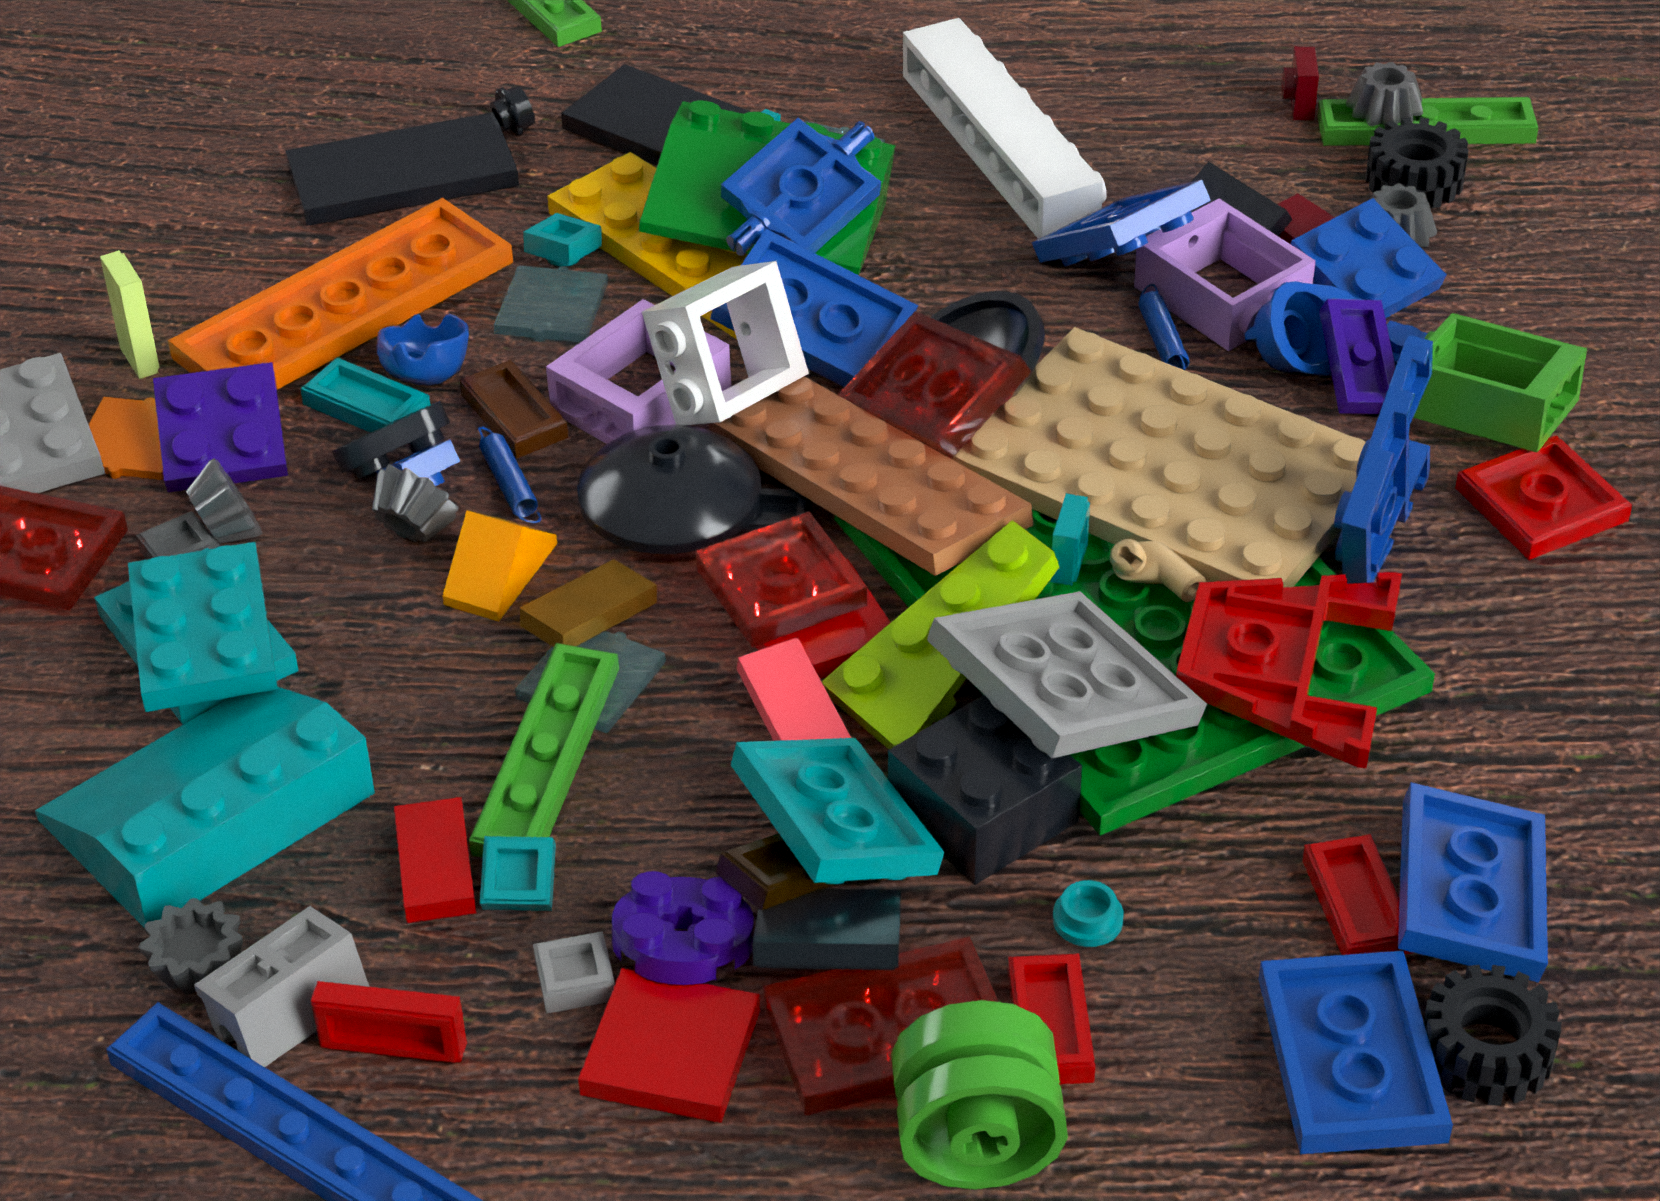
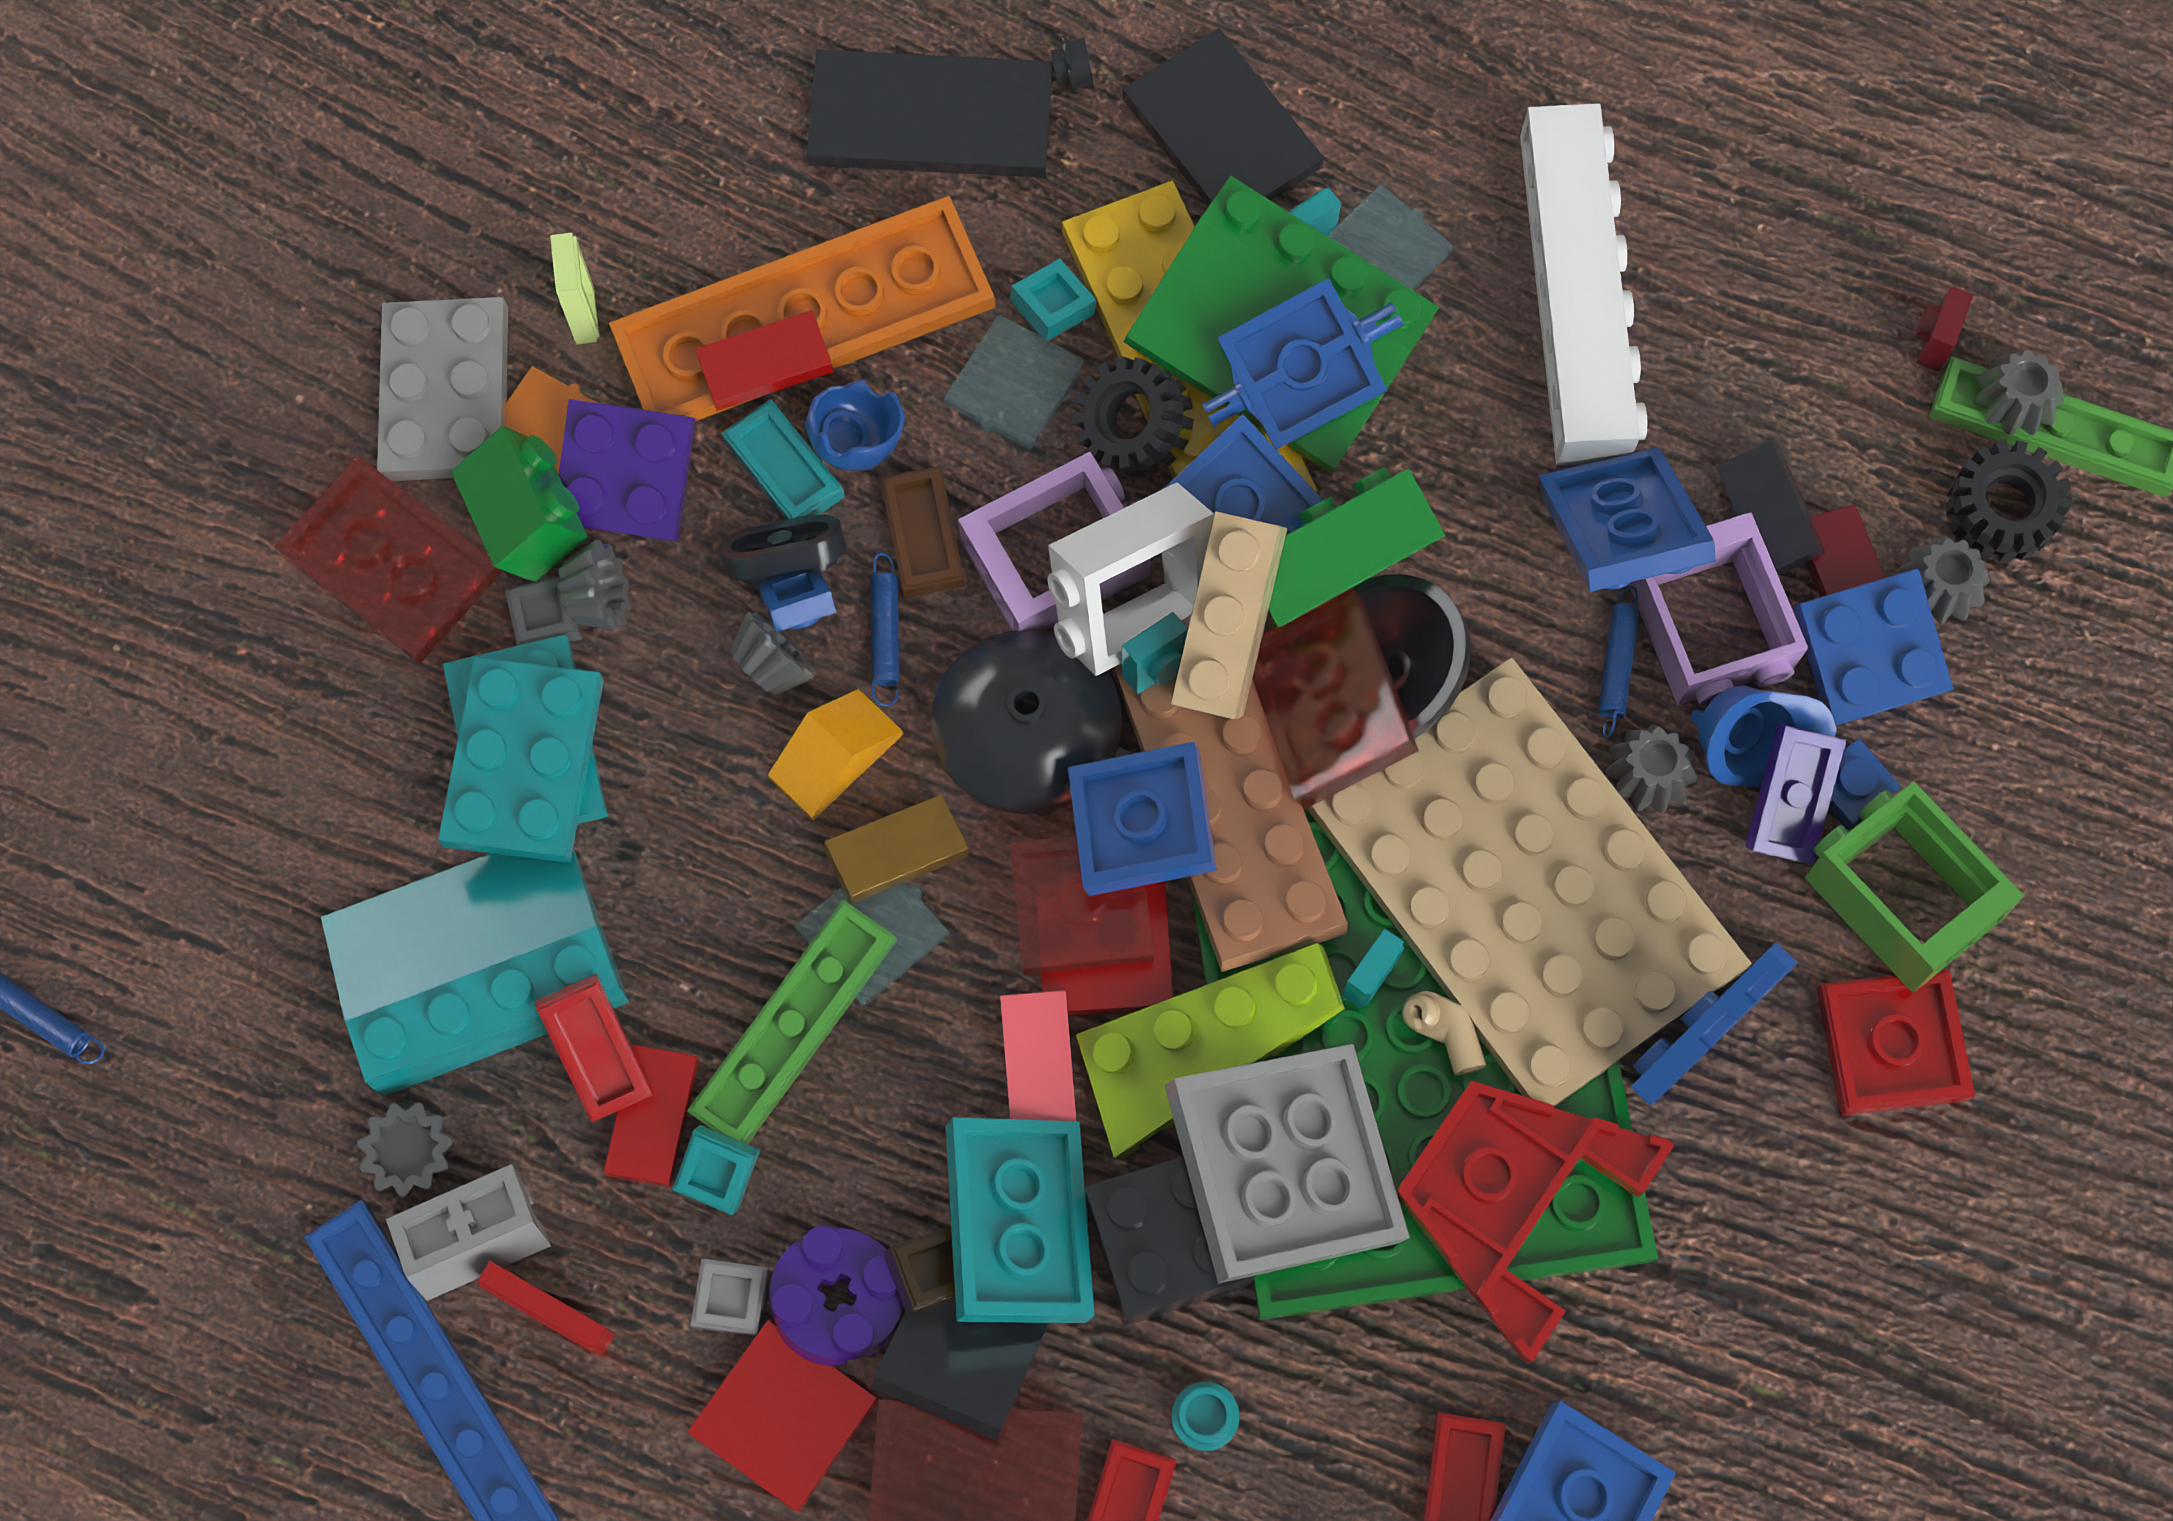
camera: 20 degrees right, 30 degrees up
(133, 456) = (519, 503): none -> green brick
(323, 321) = (764, 360): none -> red tile
(359, 792) = (593, 1047): none -> red tile
(656, 255) = (1101, 410): none -> black tyre
(766, 390) = (1154, 654): none -> teal plate
(811, 484) = (1141, 819): none -> blue plate
(822, 326) = (1229, 615): none -> tan brick
(910, 273) = (1350, 542): none -> green brick
(1238, 372) = (1652, 768): none -> flat silver piece

